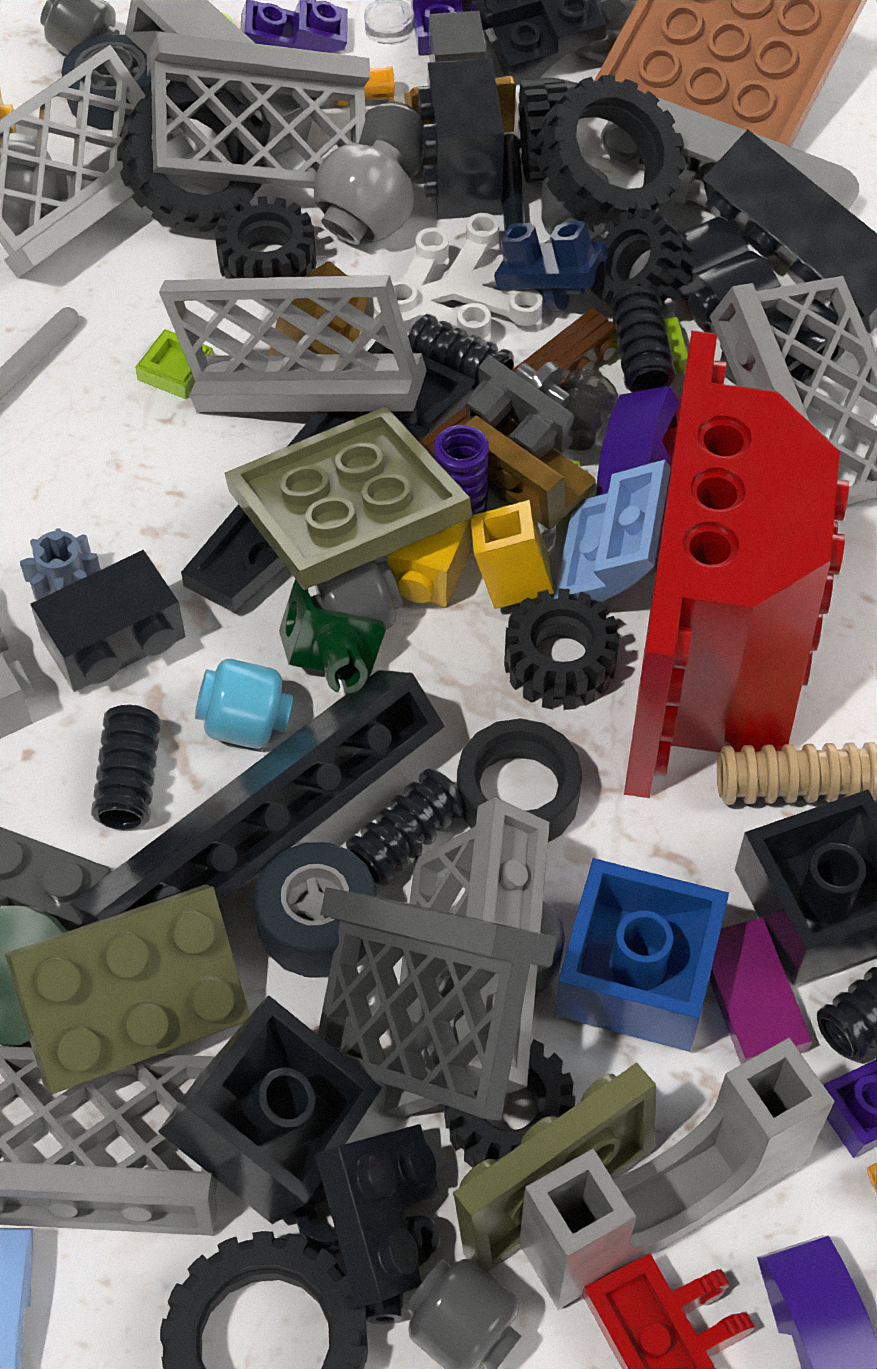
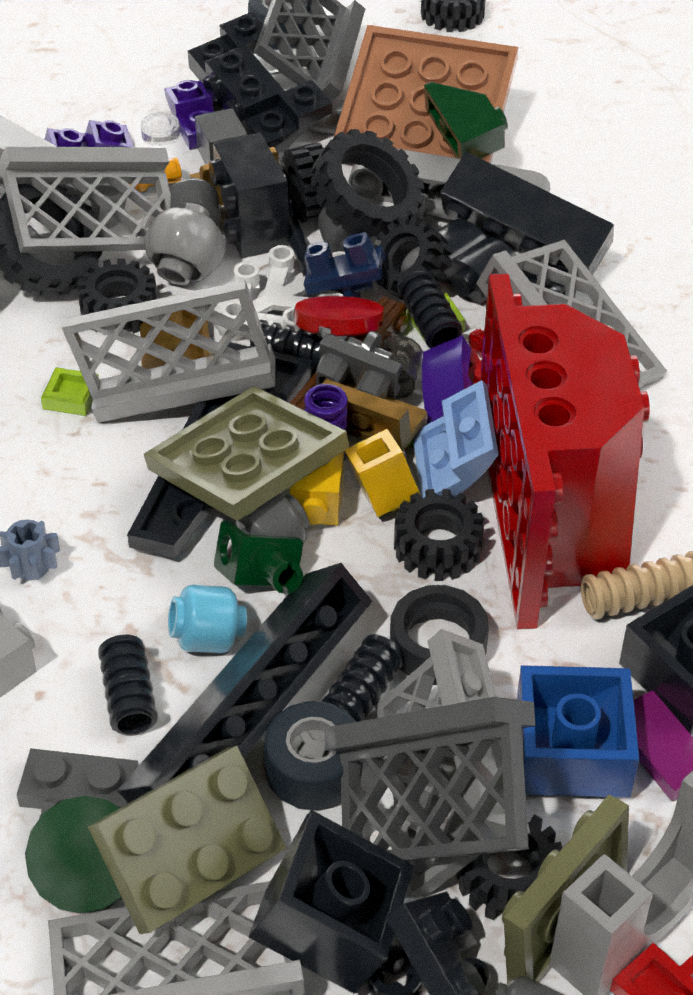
camera: 15 degrees left, 10 degrees down
(109, 620) = (81, 579): black brick -> none
(521, 328) = (339, 313): none -> red tile
(770, 81) = (466, 119): none -> dark green slope

